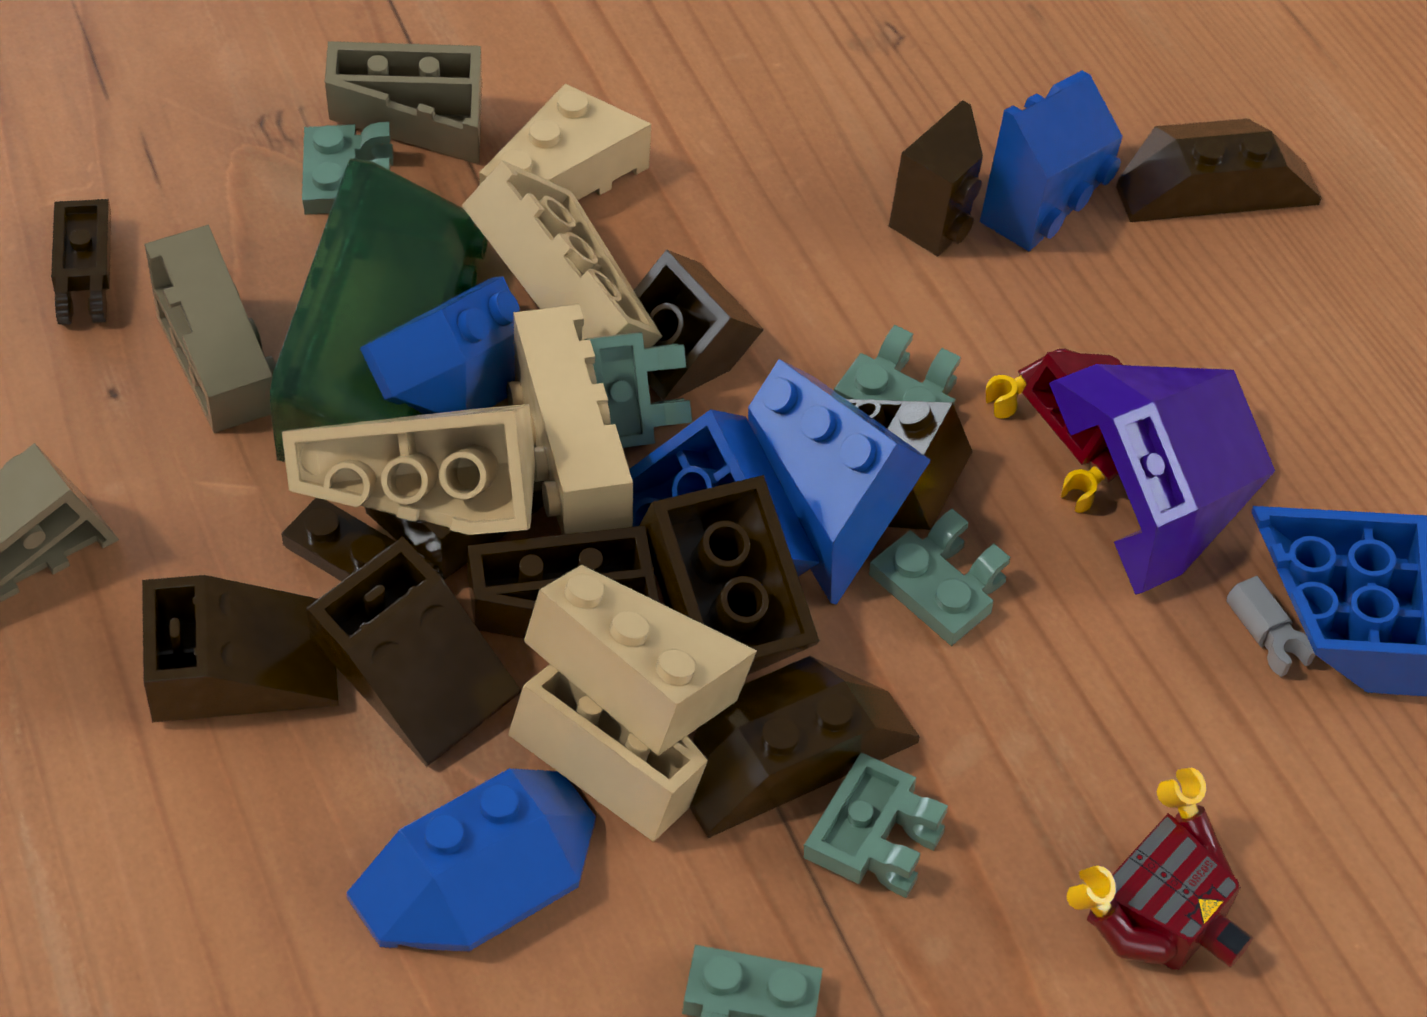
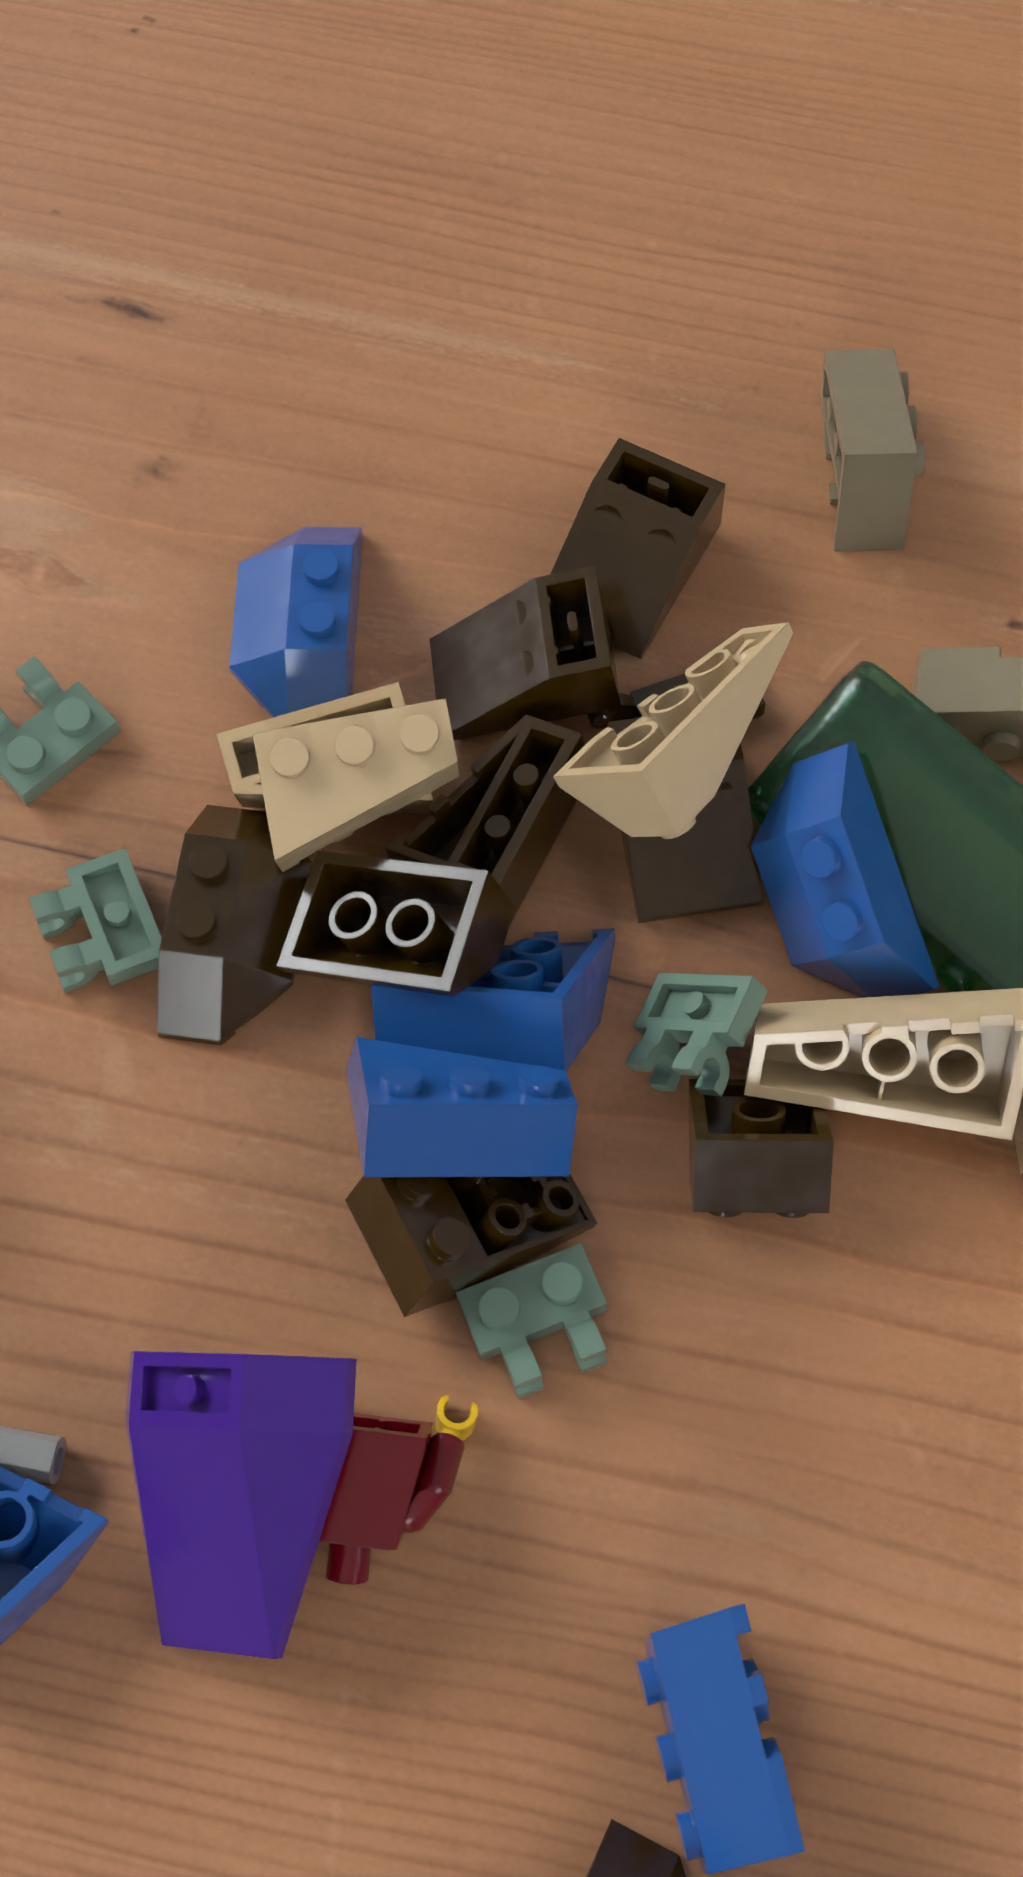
camera: 135 degrees right, 15 degrees up
(572, 430) = (669, 910): tan wedge -> none
(932, 587) = (289, 1164): sand green plate -> none
(939, 182) = (773, 1565): dark brown slope -> none

